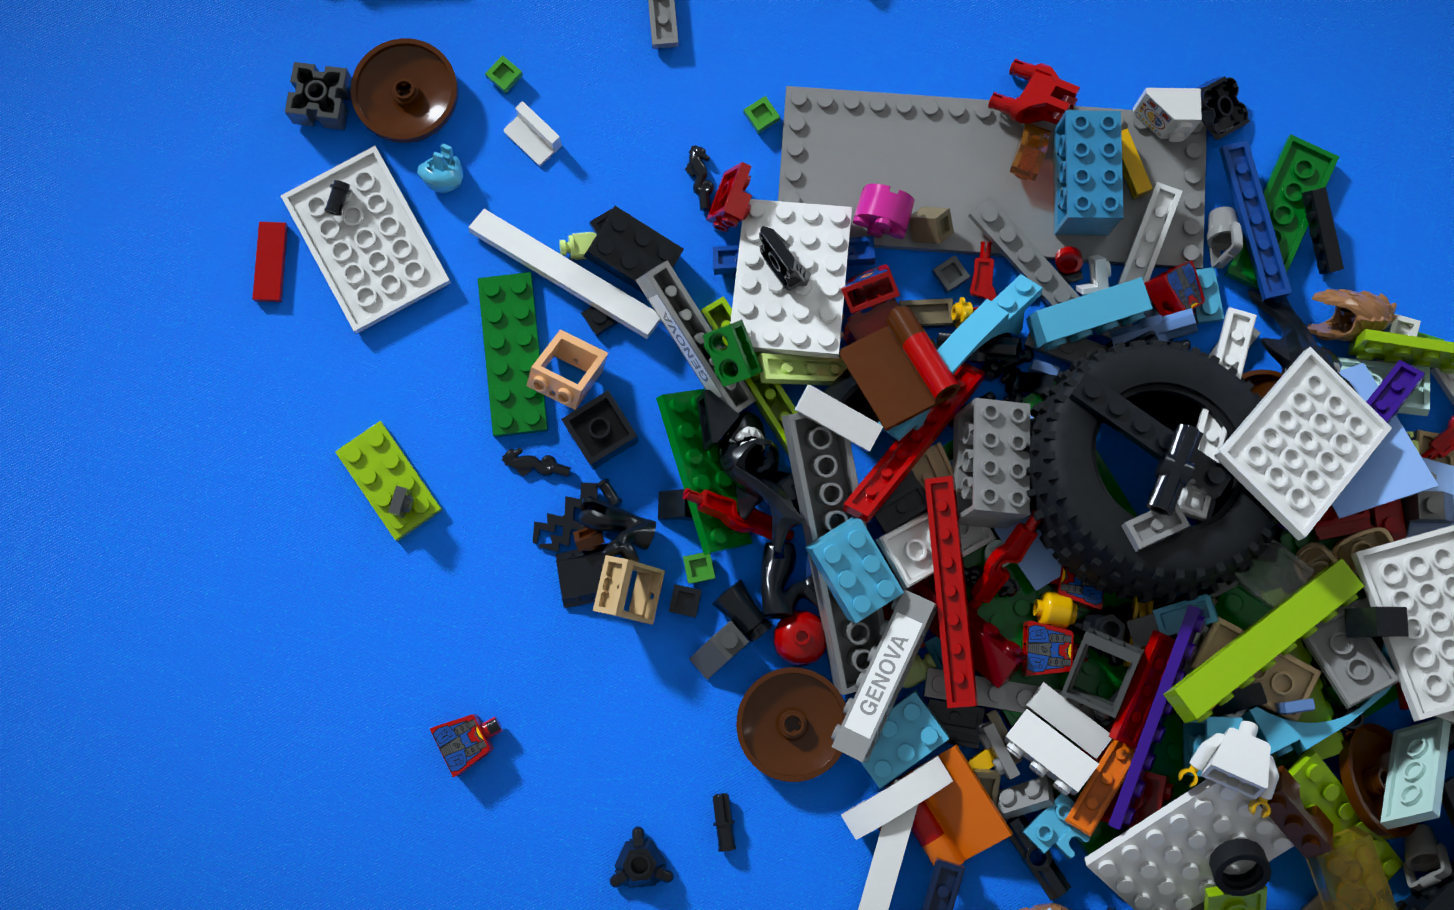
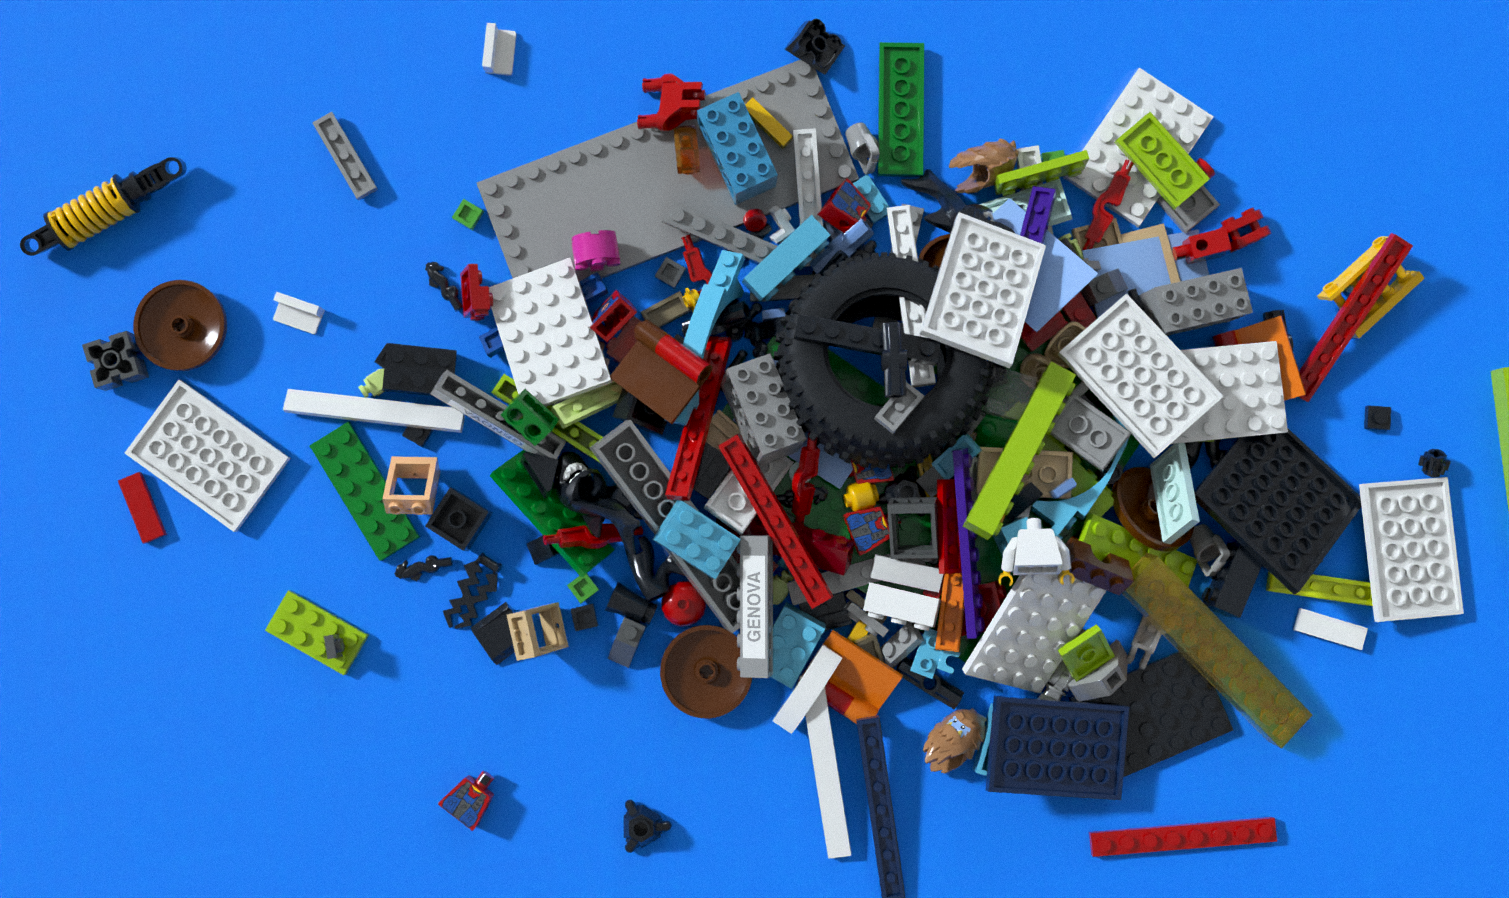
camera: 25 degrees left, 5 degrees up
(337, 197) = (169, 435): black pin -> none
(442, 172) = (241, 375): medium azure piece -> none
(504, 74) = (252, 275): bright green plate -> none
(588, 539) = (489, 605): reddish brown plate -> none
(609, 518) = (496, 583): black piece -> none
(724, 822) = (689, 766): black axle -> none
(781, 261) = (535, 326): black slope -> none
(838, 418) = (631, 431): white tile -> none
(931, 225) = (637, 242): dark tan panel -> none
(1170, 111) = (778, 70): white slope -> none
(1244, 883) = (1083, 633): black tyre -> none
(1255, 221) = (881, 124): blue plate -> none
(1322, 230) = (935, 108): black piece -> none
(1376, 622) = (1095, 398): black slope -> none

